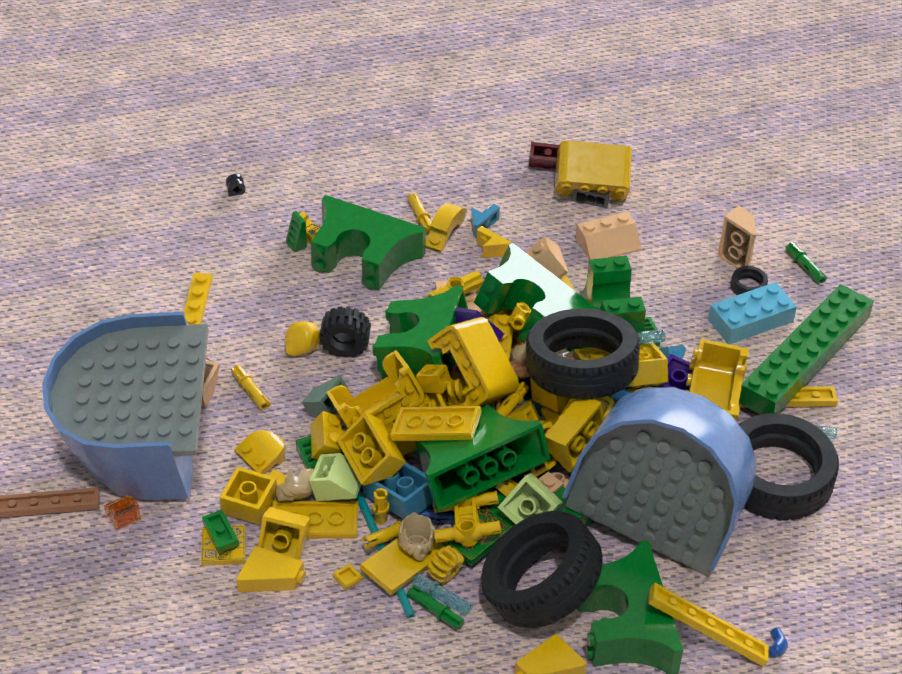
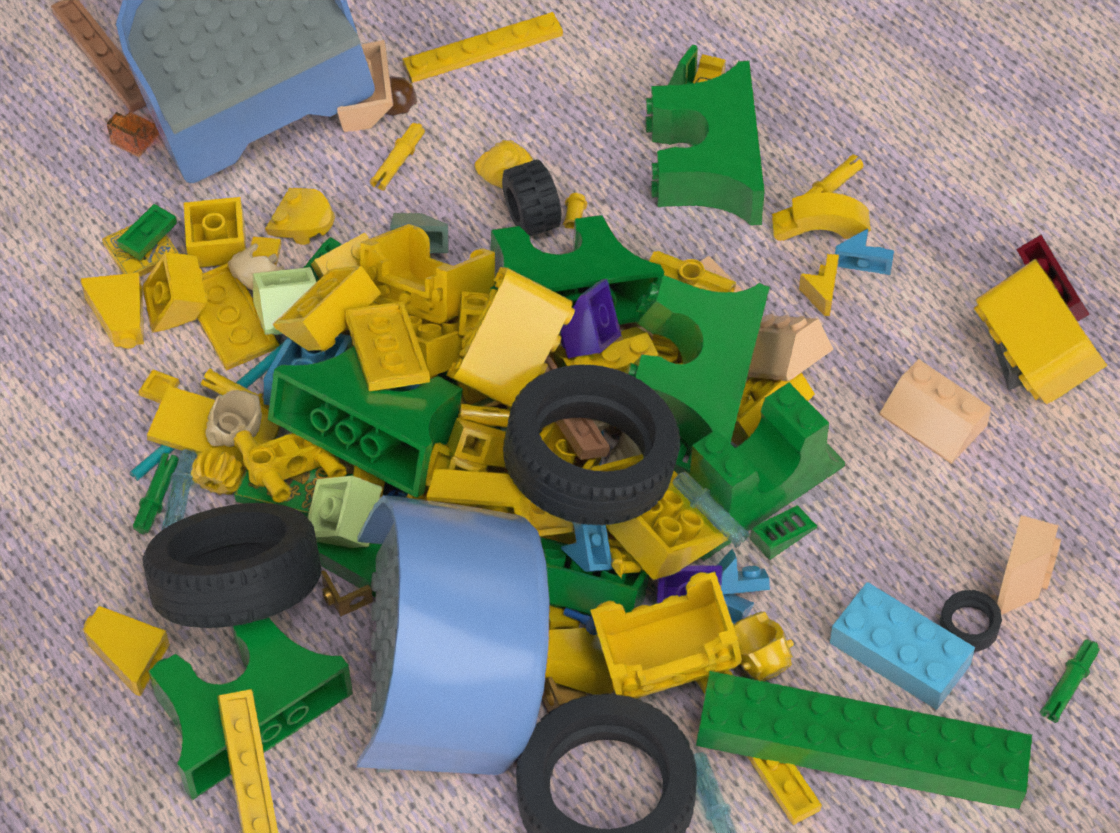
camera: 65 degrees right, 10 degrees up
(380, 506) = (264, 357): yellow pin -> none
(519, 315) = (650, 347): yellow axle -> none

